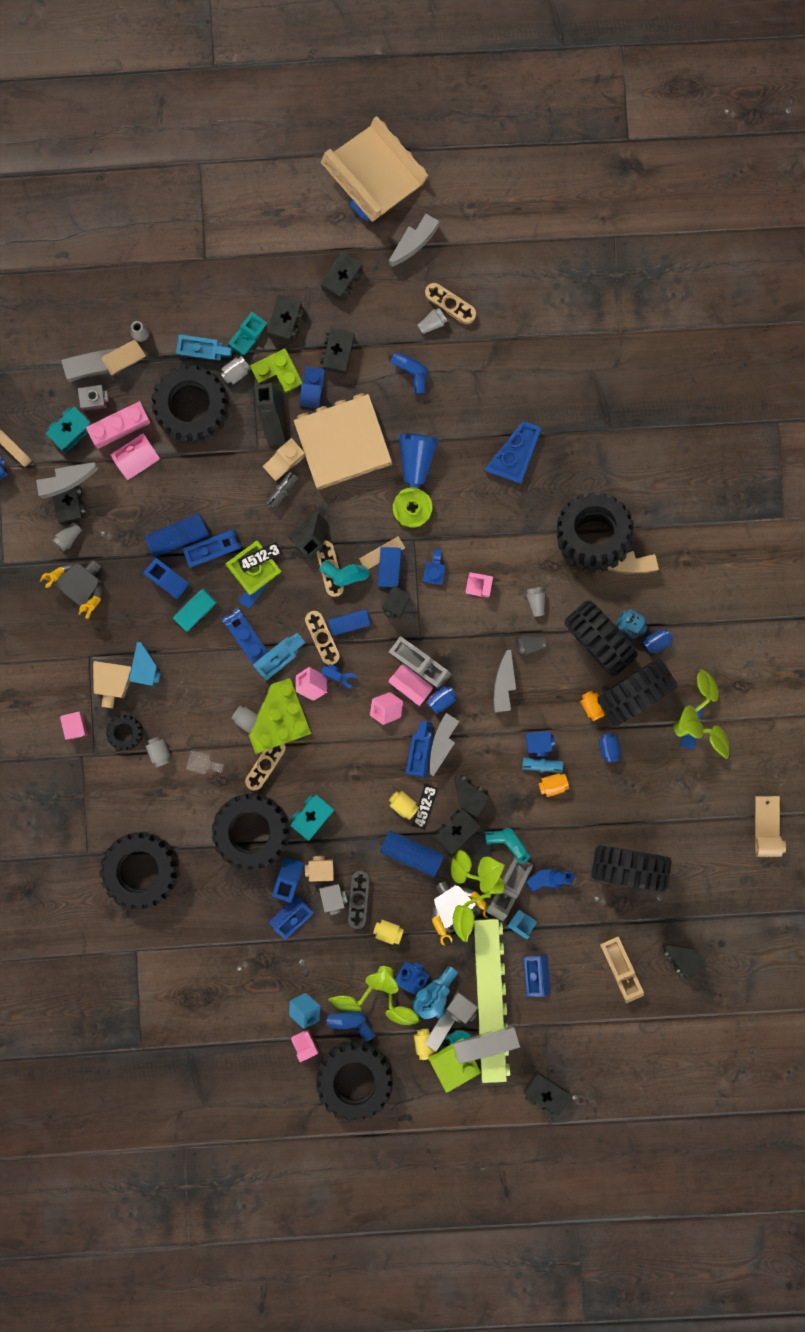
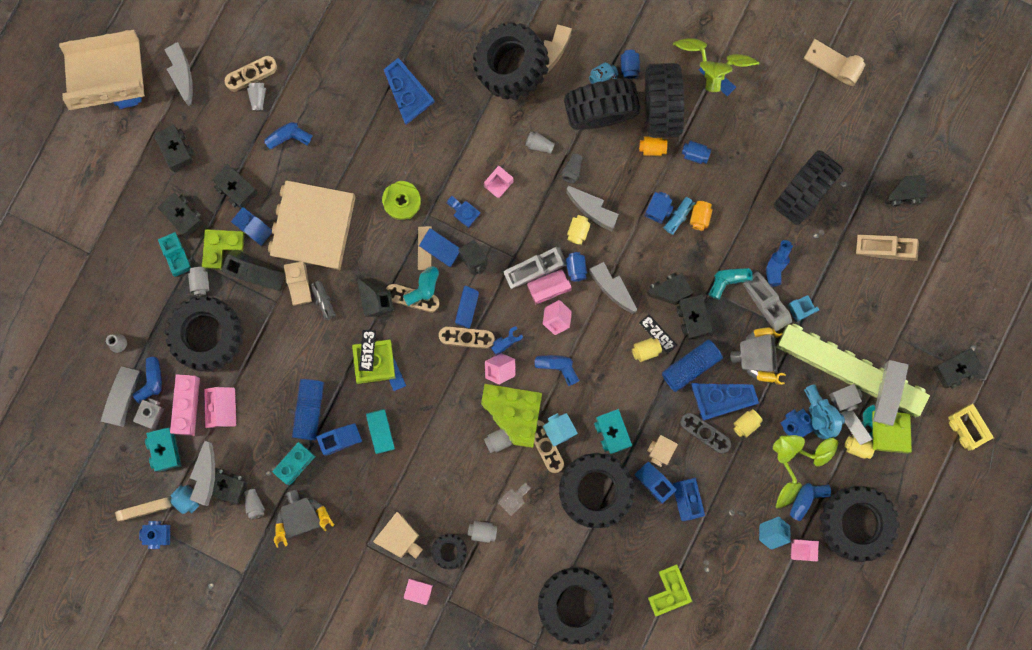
camera: 55 degrees left, 5 degrees down
(34, 471) = (182, 501): none -> dark azure head
(122, 551) = (293, 463): none -> teal brick
(123, 357) = (130, 368): tan tile -> none
(123, 384) = (153, 379): none -> blue arm
(144, 667) = (404, 502): dark azure slope -> none
(199, 952) = (674, 594): none -> lime plate
(202, 348) = (163, 298): dark azure hinge -> none
(211, 548) = (336, 387): blue plate -> none
(245, 636) = (427, 401): blue plate -> none
(278, 656) = (461, 382): dark azure hinge -> none
(287, 768) = (559, 429): none -> medium azure brick
(333, 898) = (692, 454): light grey brick -> none
(345, 732) = (559, 363): none -> blue arm
(398, 897) = (723, 398): none -> blue wing
(416, 457) = (361, 171): blue cone -> none
(420, 750) = (609, 309): blue hinge -> none
(477, 682) = (578, 230): none -> light yellow brick
(490, 883) = (748, 303): lime plant -> none
(494, 1121) = (965, 438): none -> light yellow window
(536, 975) = (853, 321): blue slope -> none

